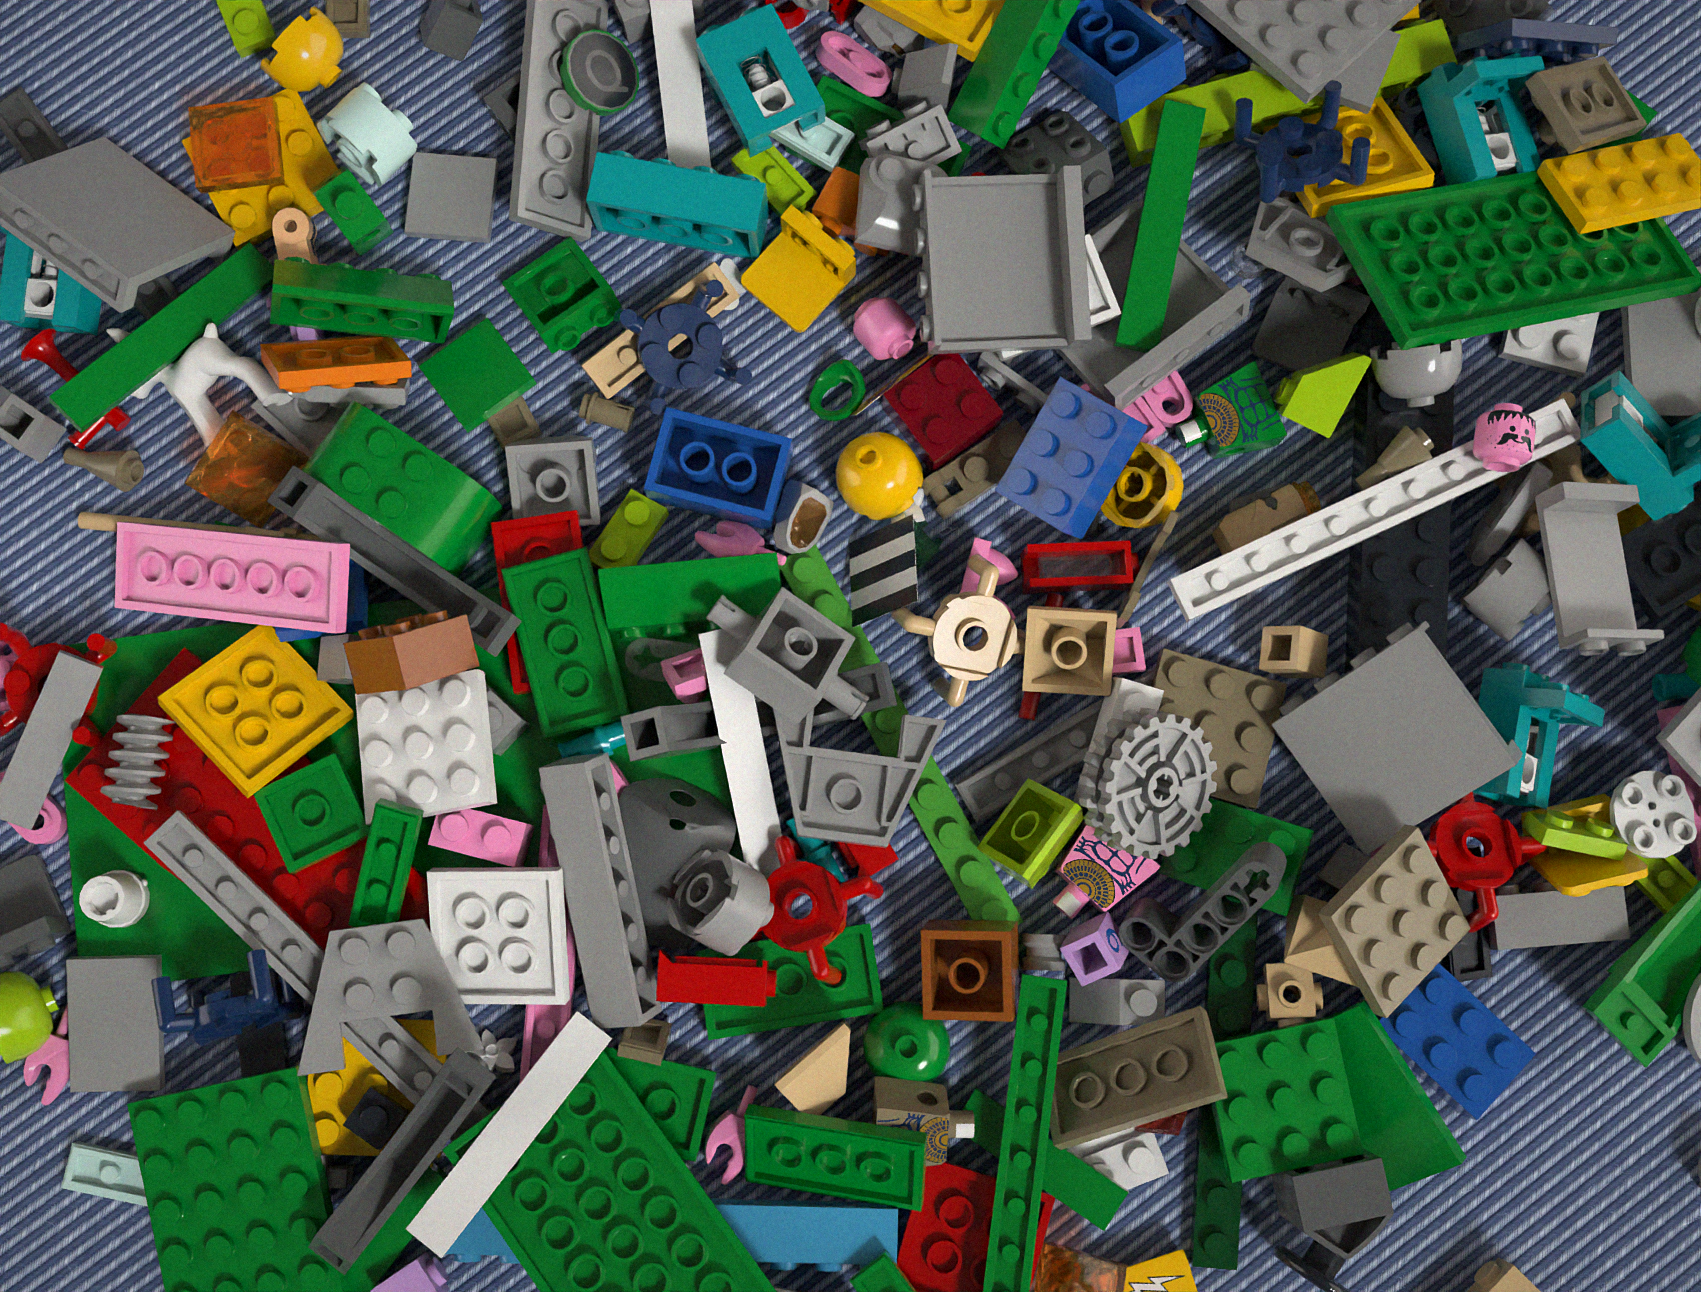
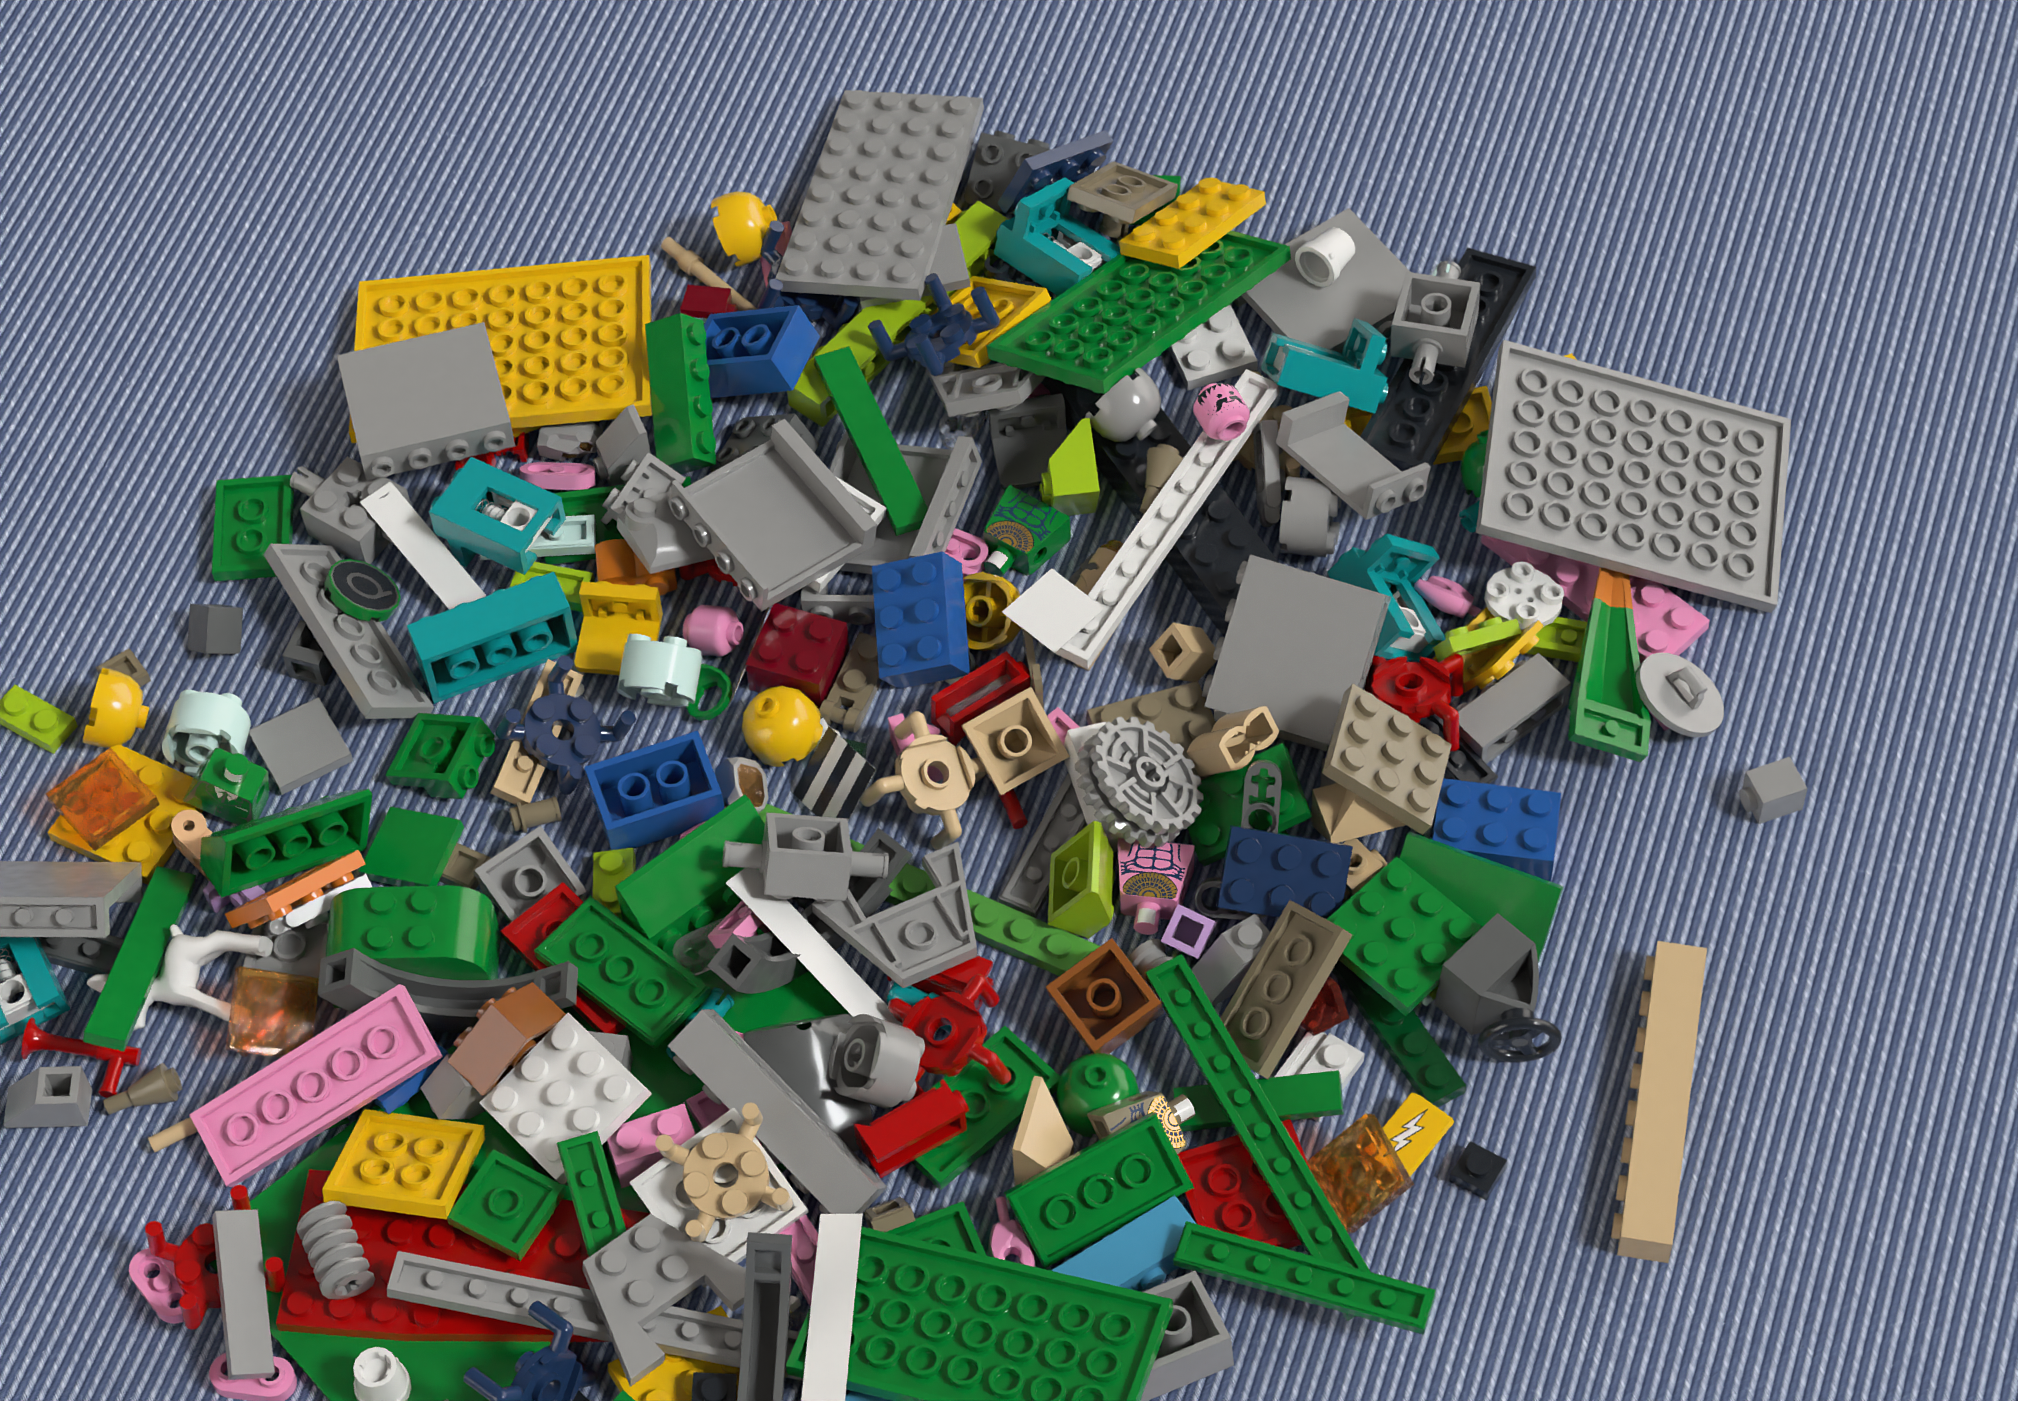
camera: 30 degrees left, 25 degrees down
(487, 945) = (720, 1150): none -> tan plate
(801, 348) = (660, 670): none -> light aqua brick
(1194, 543) = (1053, 610): none -> white sticker
(1215, 968) = (1271, 868): none -> dark blue plate
(1268, 790) = (1233, 741): none -> tan brick
(1582, 757) = (1447, 596): none -> bright pink hand

